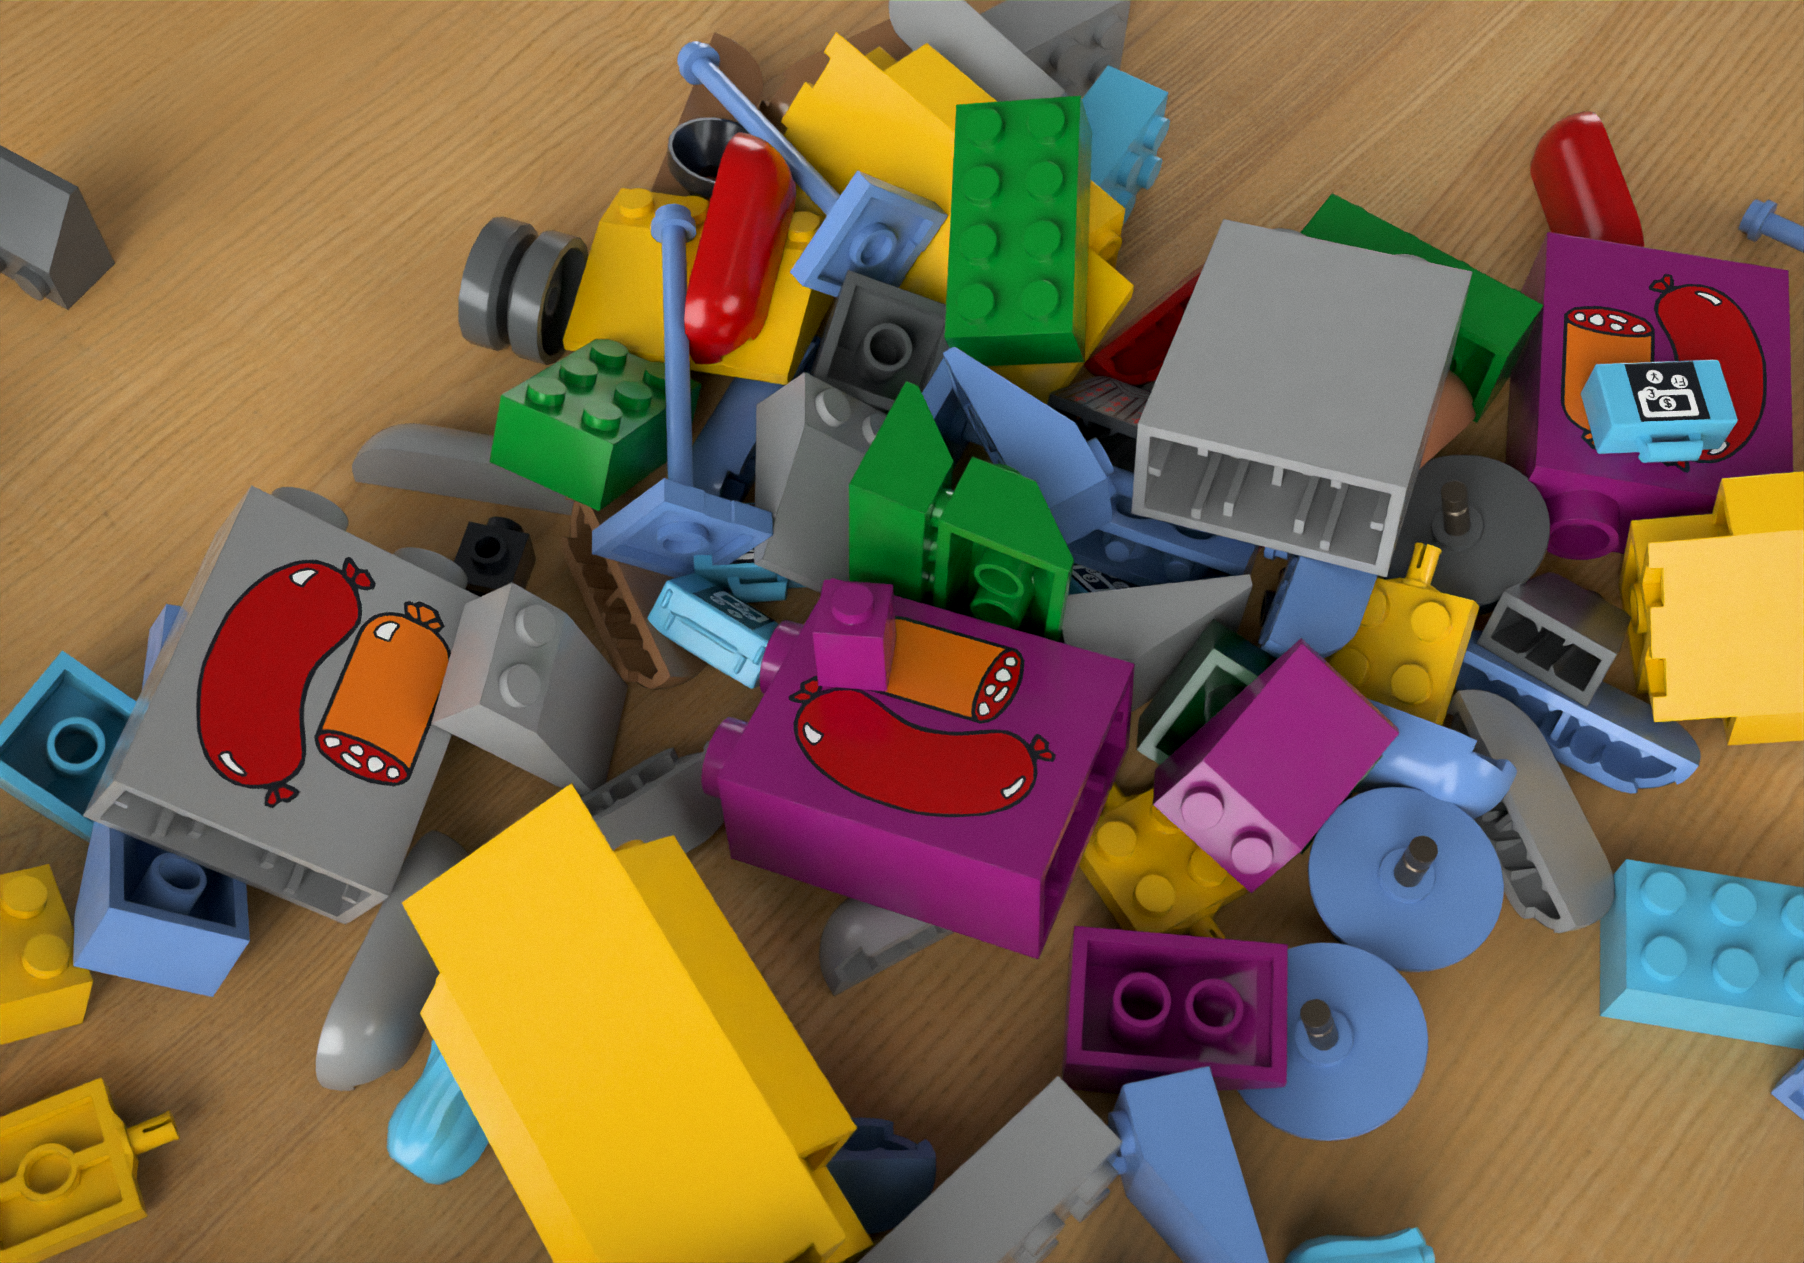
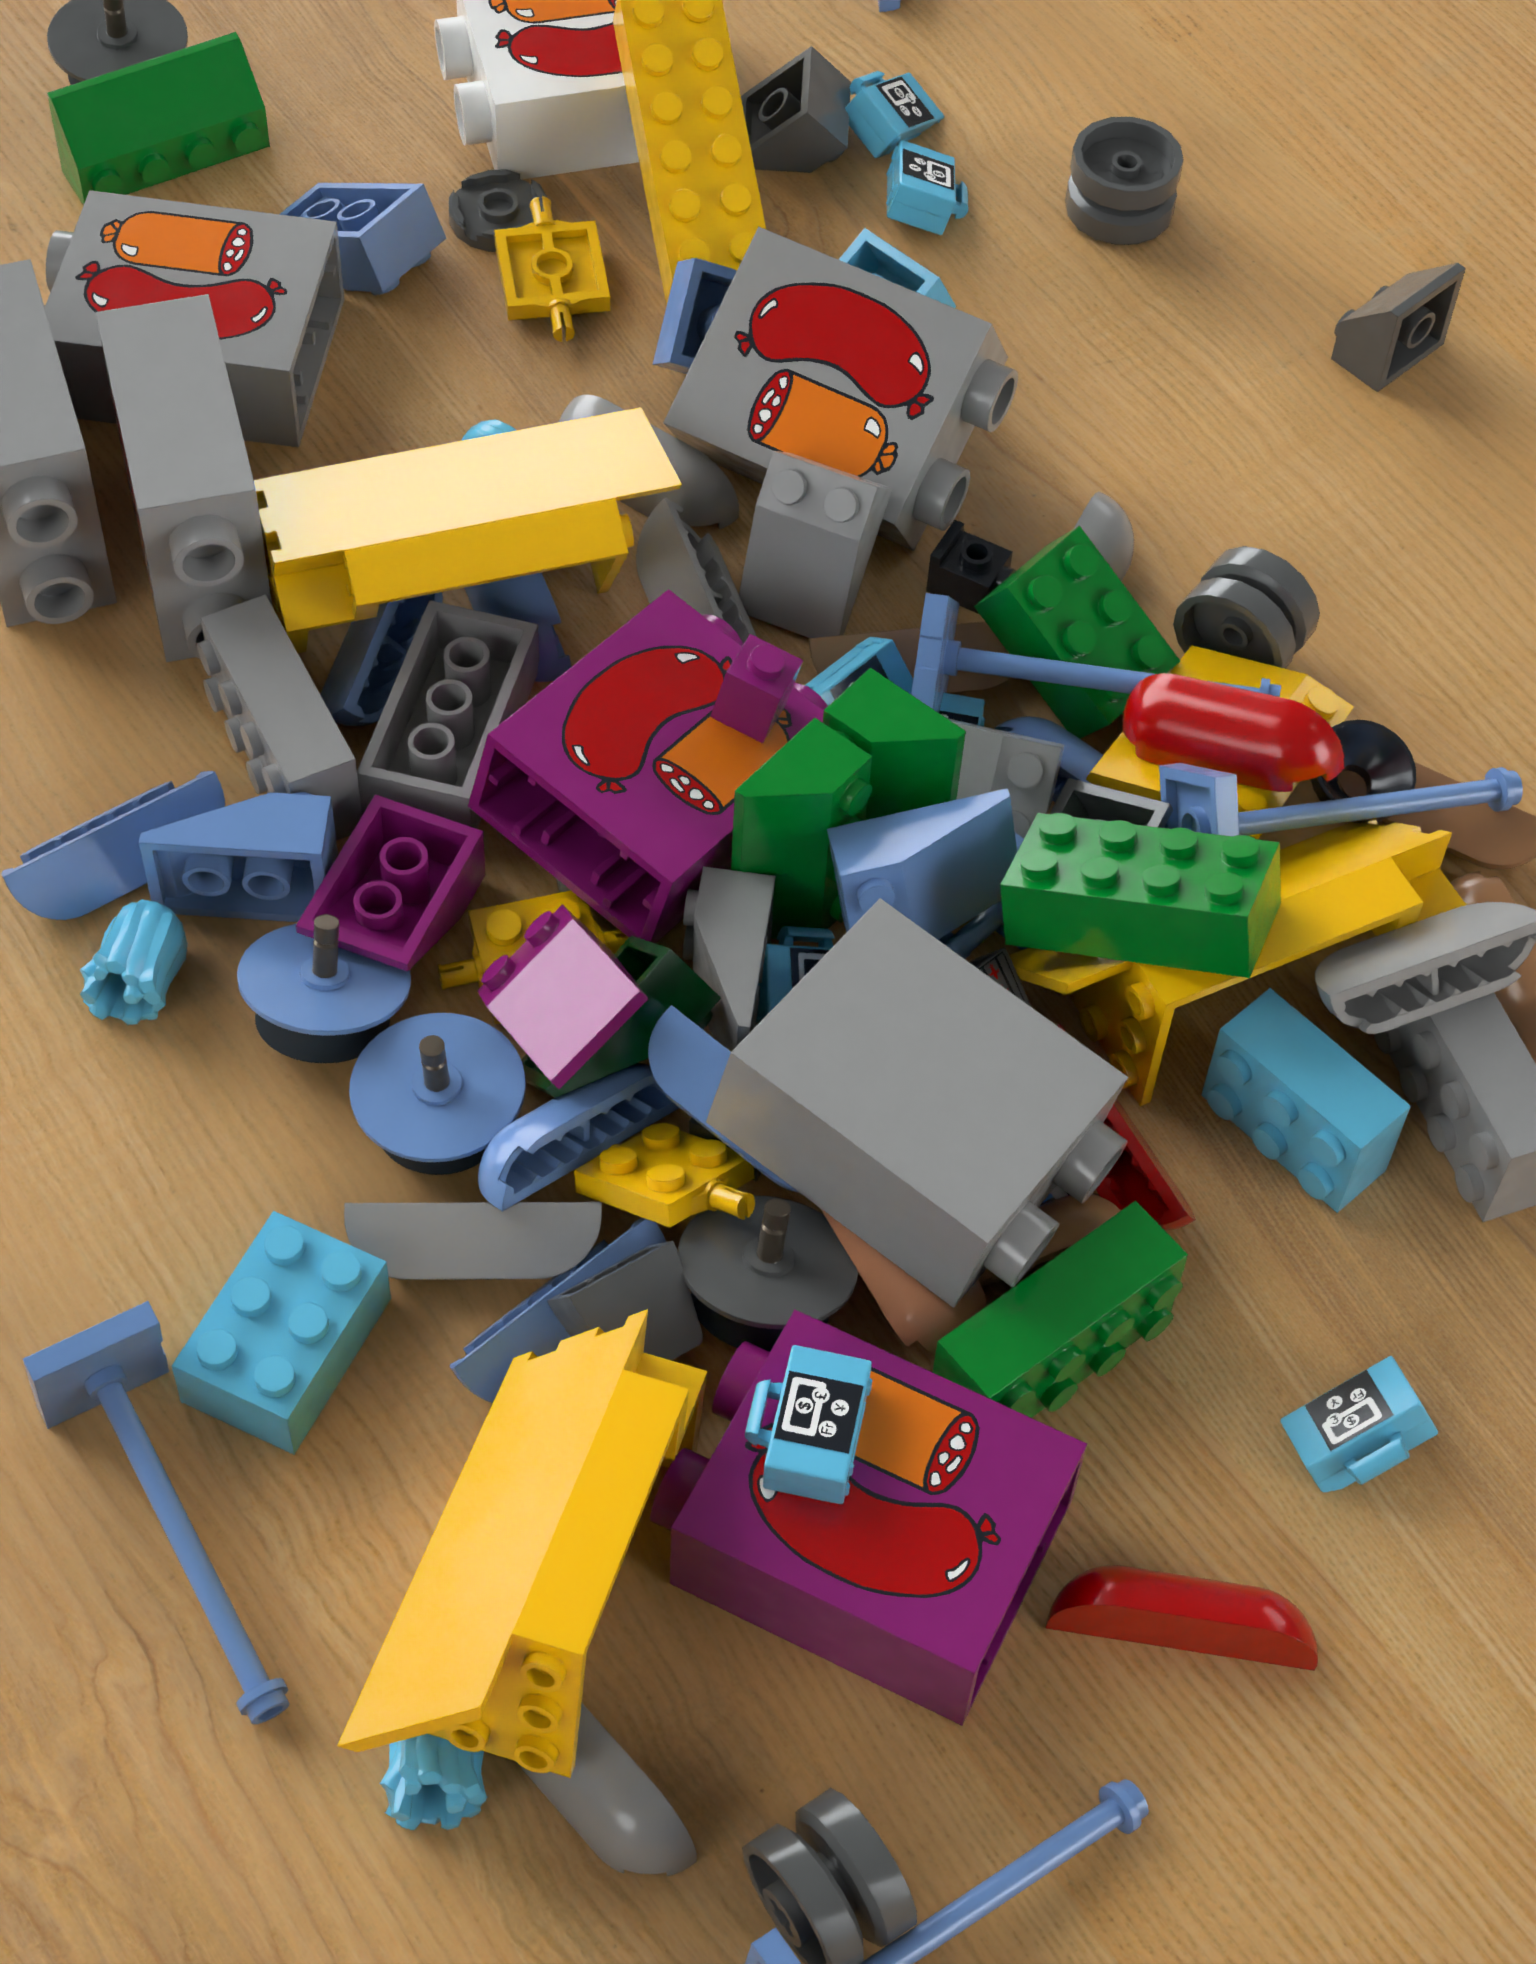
camera: 105 degrees right, 5 degrees down
(918, 1032) = (451, 691): none -> light grey brick
(1364, 116) = (1359, 1427): none -> medium azure piece

